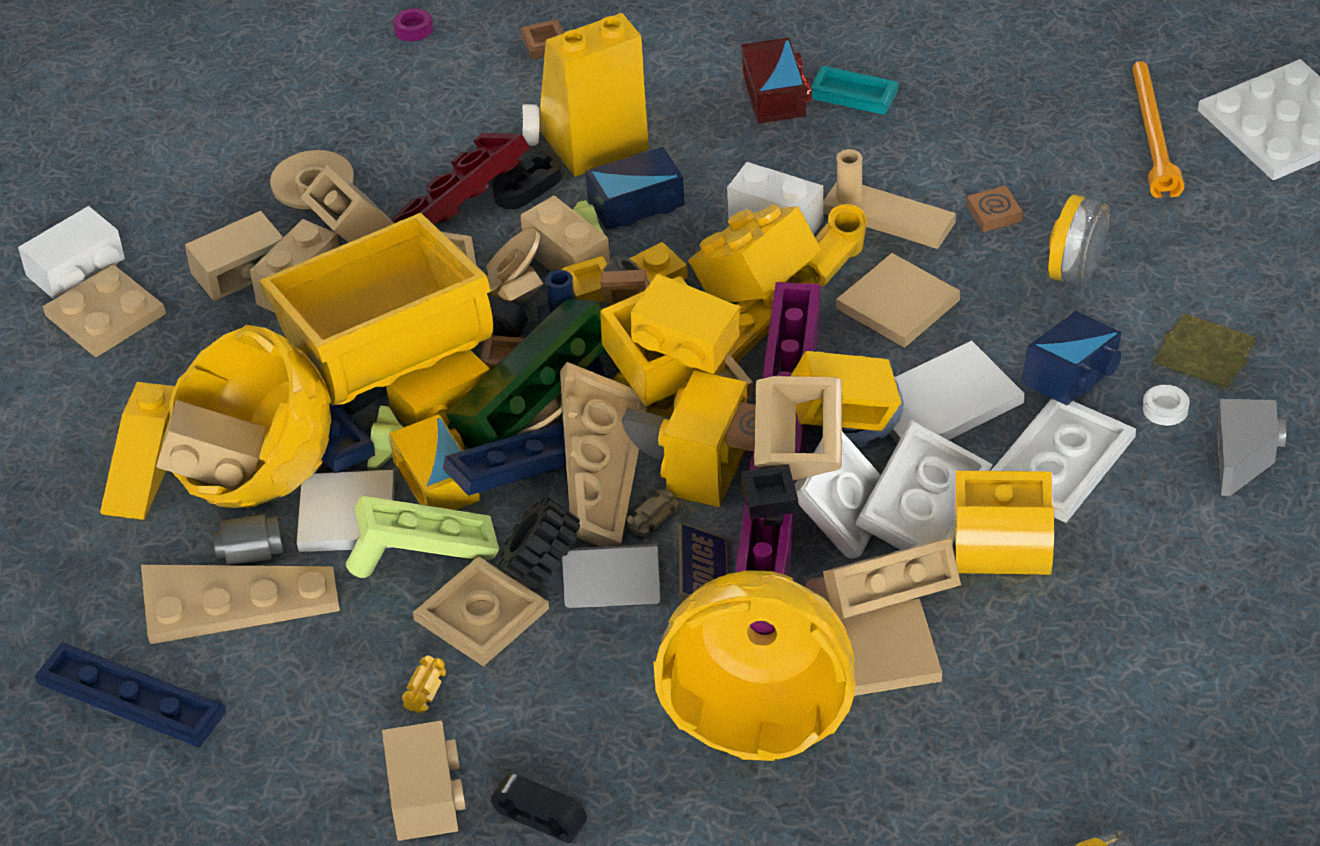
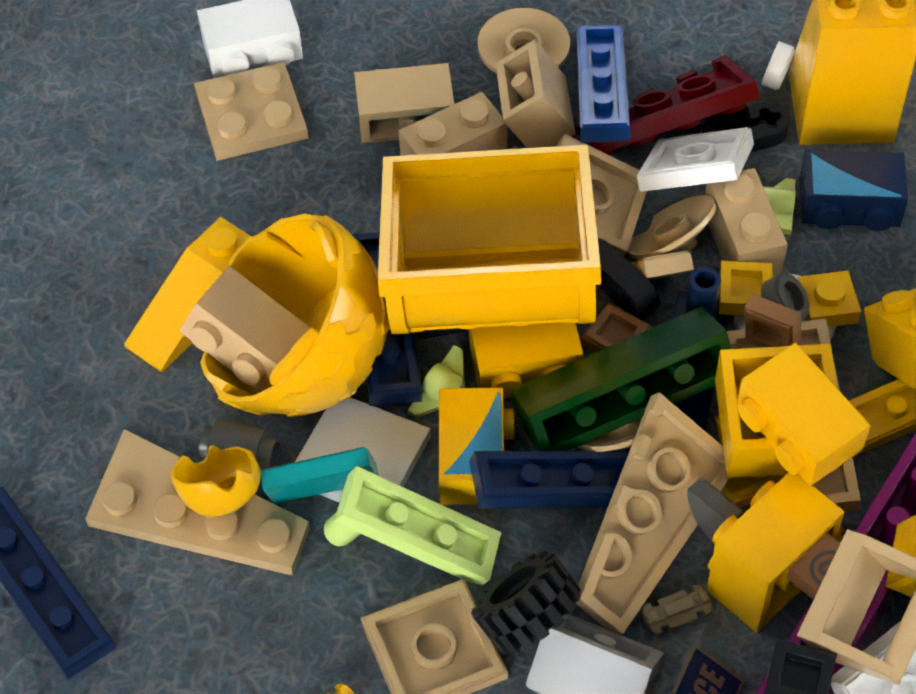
camera: 25 degrees right, 10 degrees up
(250, 557) = (218, 482): none -> yellow hair
(323, 527) = (314, 475): none -> teal tile
(394, 181) = (602, 84): none -> blue tile
(502, 207) = (696, 159): none -> white tile

